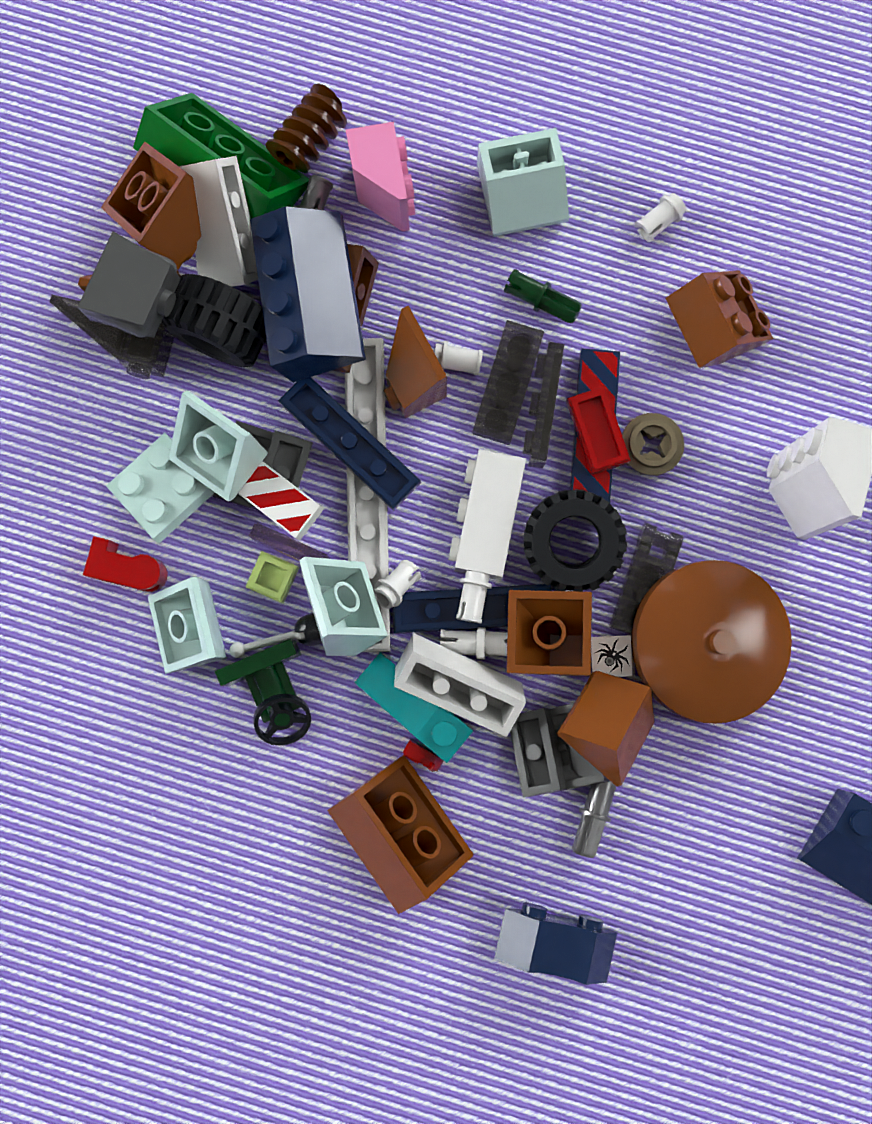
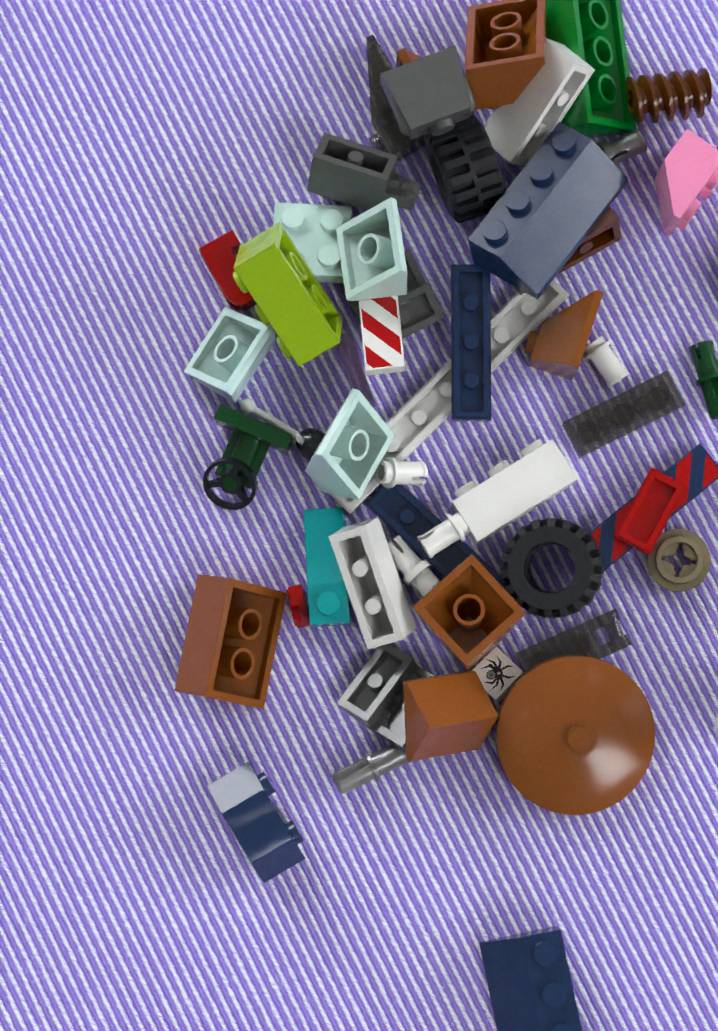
camera: 45 degrees right, 0 degrees up
(144, 405) = (358, 175): none -> dark grey hinge
(181, 542) = (287, 295): none -> lime brick
(272, 577) = (322, 381): yellowish green tile -> none
(543, 405) = (630, 454): clear smoke plate -> none

